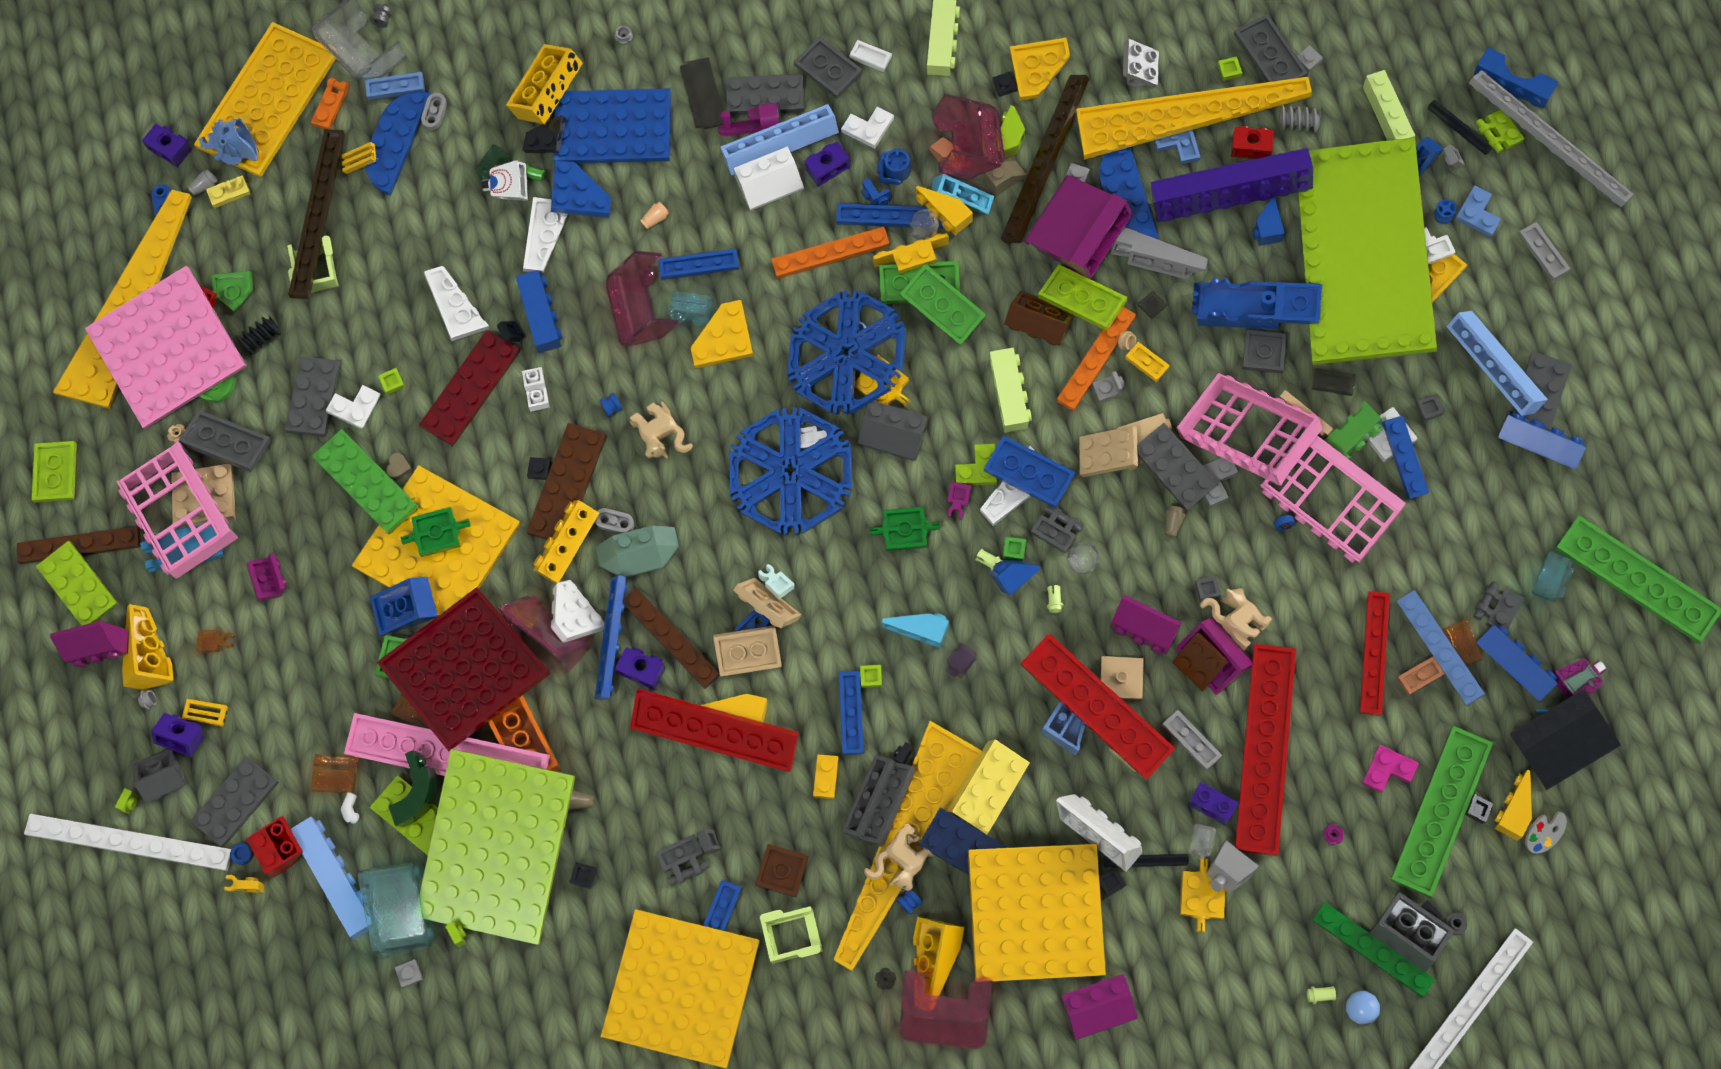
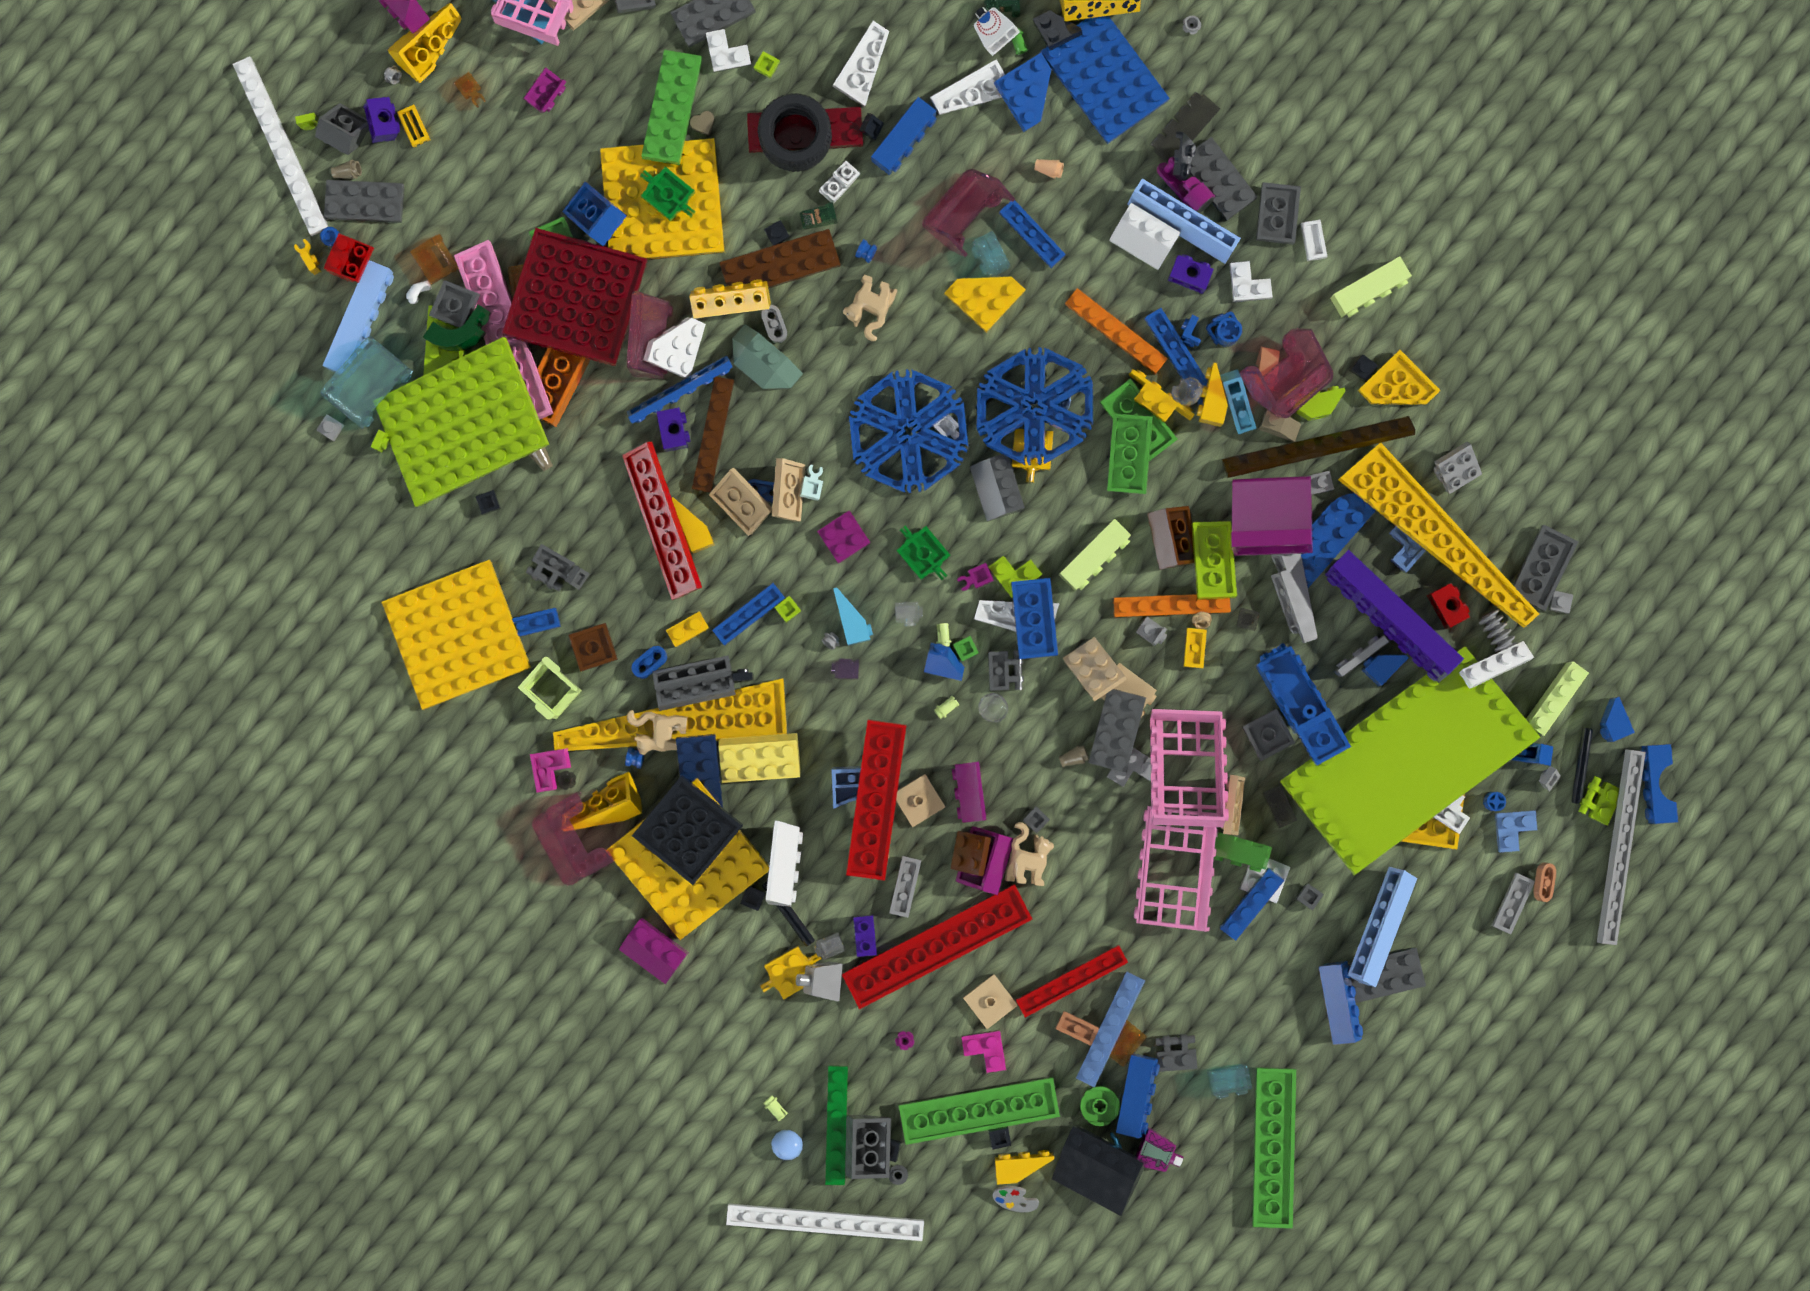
camera: 50 degrees right, 15 degrees up
(197, 795) = (349, 169): none -> dark tan cone
(387, 779) = (454, 304): none -> dark grey plate
(461, 365) = (794, 105): none -> black tyre
(552, 423) = (818, 216): none -> clear green leg
(724, 101) = (1183, 157): none -> black wing
(831, 830) = (648, 660): none -> blue plate
(842, 587) = (843, 537): none -> magenta plate
(857, 986) = (544, 765): none -> dark pink plate
(925, 658) = (831, 640): none -> light grey plate
(948, 576) = (908, 613): none -> clear brick
(1010, 888) = (687, 830): none -> black plate
(1229, 68) = (1505, 543): lime plate -> none
(1246, 236) = (1360, 655): none -> light grey plate
(1284, 522) = (1131, 844): blue tile -> none
(1328, 136) = (1496, 664): none -> white plate
(1346, 736) = (990, 1001): none -> tan plate
(1439, 78) = (1615, 721): none -> blue slope
(1493, 707) = (1107, 1113): none -> bright green plate
(1542, 215) = (1544, 882): none -> nougat plate

